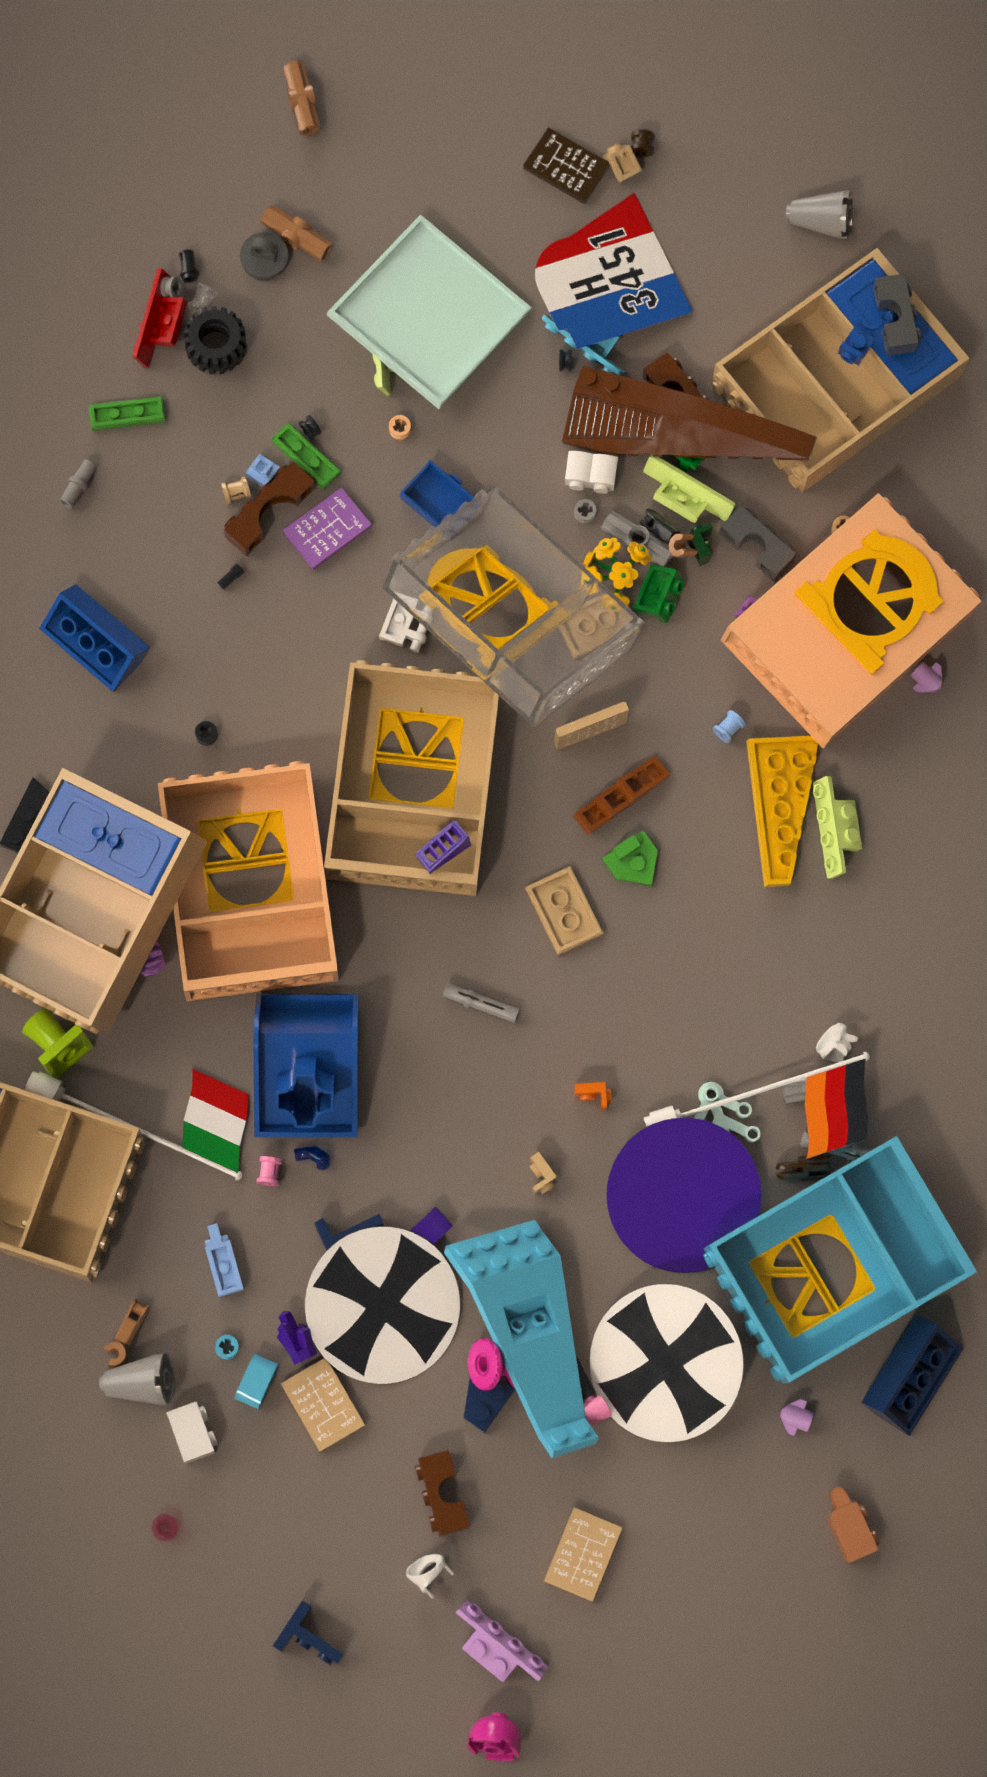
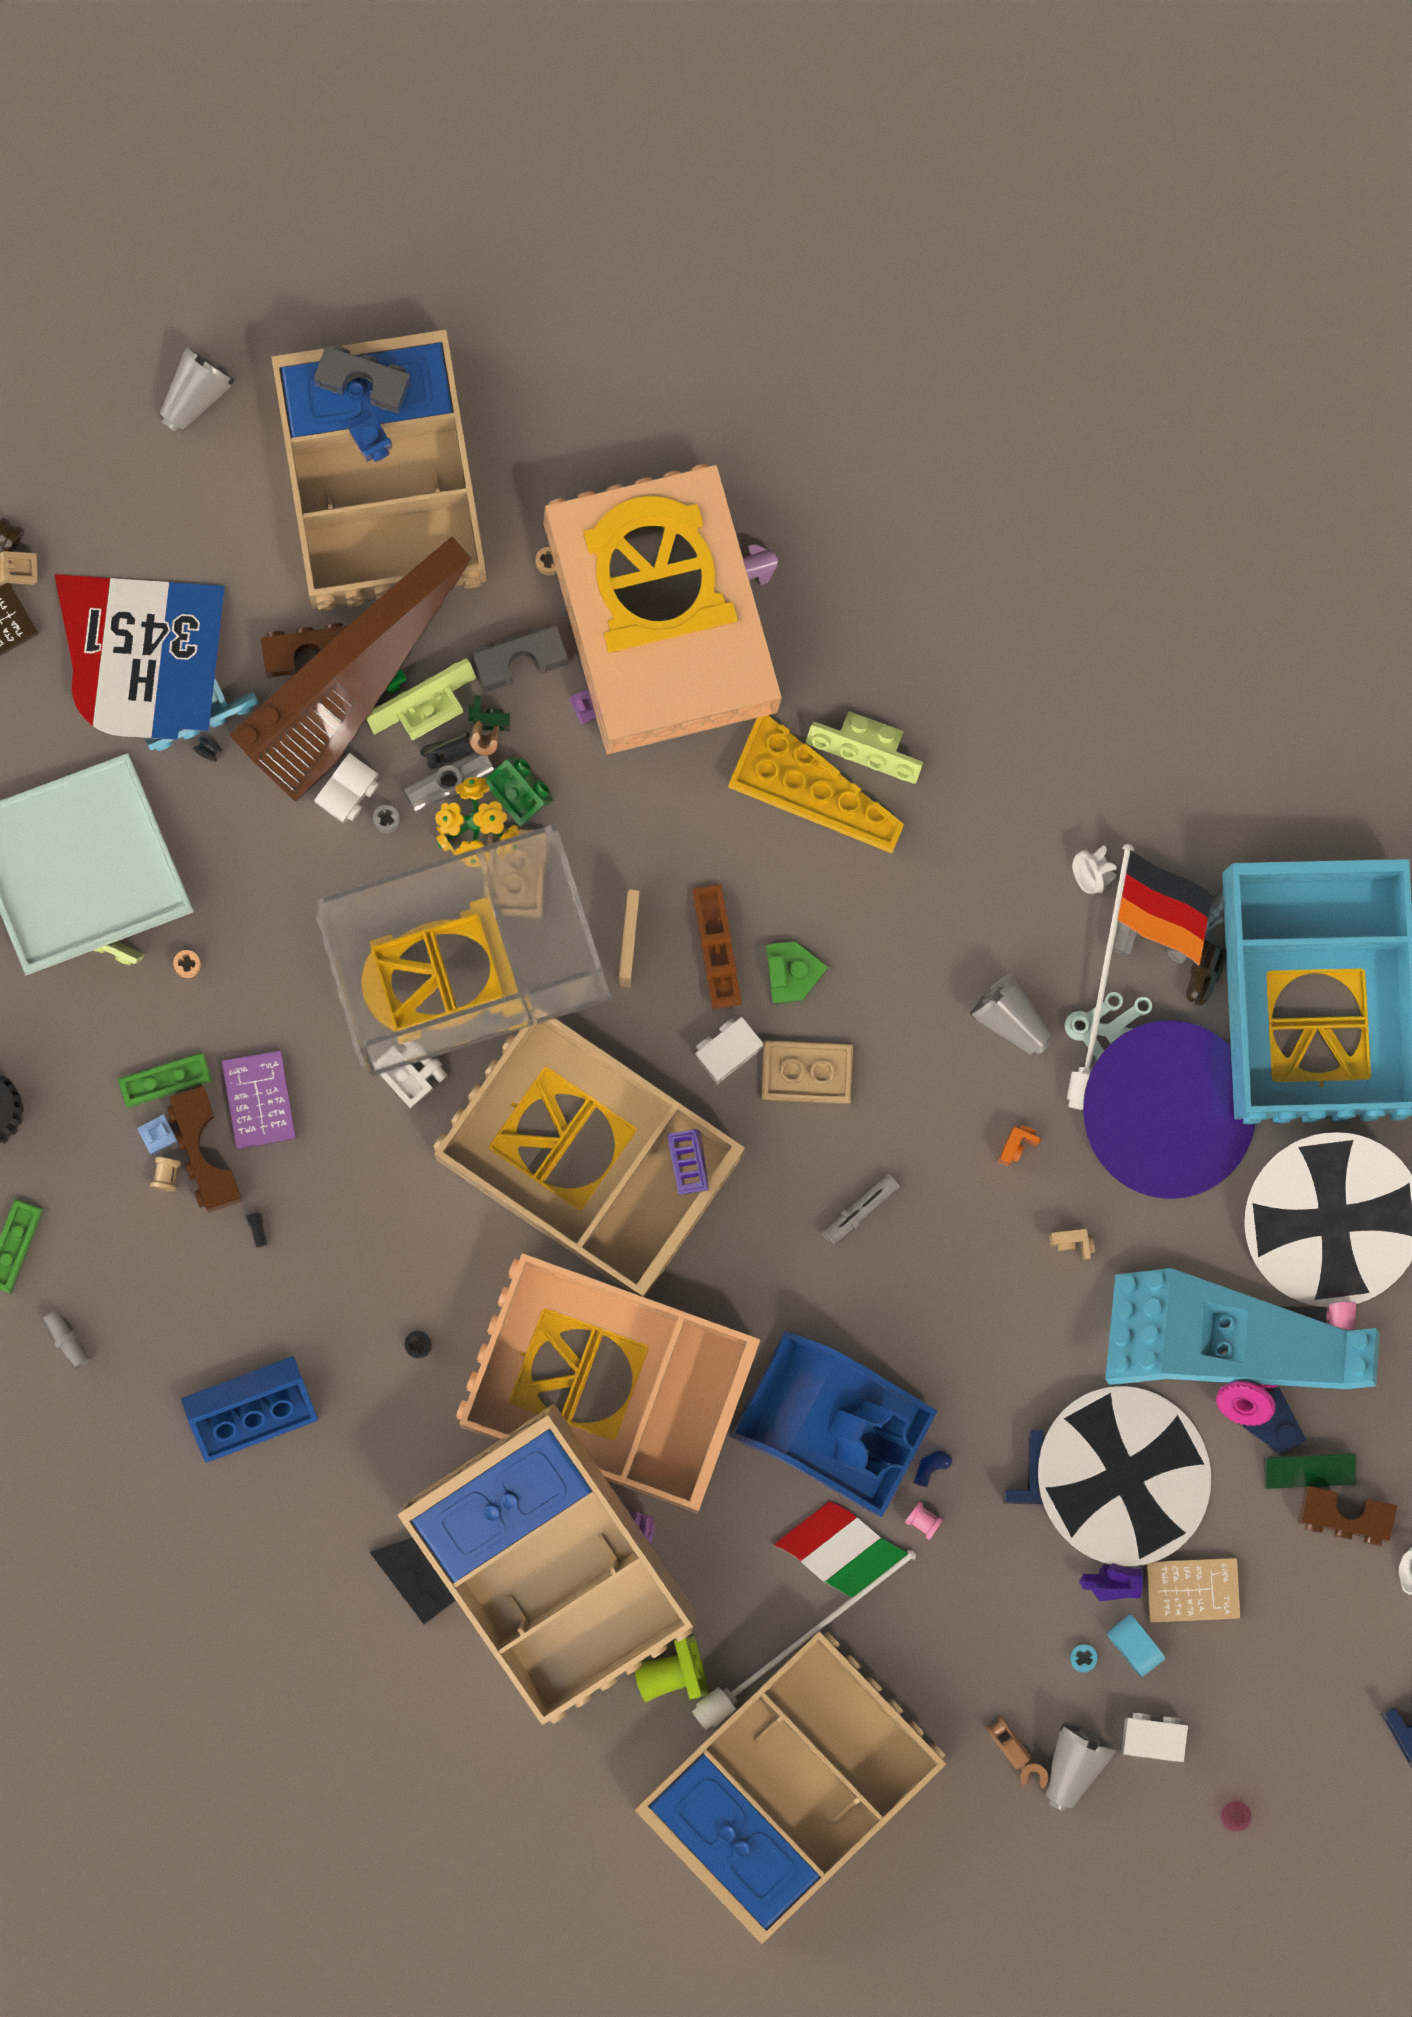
camera: 65 degrees left, 5 degrees up
(222, 1263) = (995, 1617): light blue hinge -> none
(310, 427) = (137, 1059): black bush -> none
(432, 1226) = (1069, 1383): dark purple slope -> none
(435, 494) = (290, 964): blue container -> none
(462, 1447) = (1310, 1471): none -> dark green slope
(548, 843) = (728, 1050): none -> white brick
(689, 1039) = (1012, 1015): none -> light grey cone
(729, 726) = (702, 796): light blue bush -> none

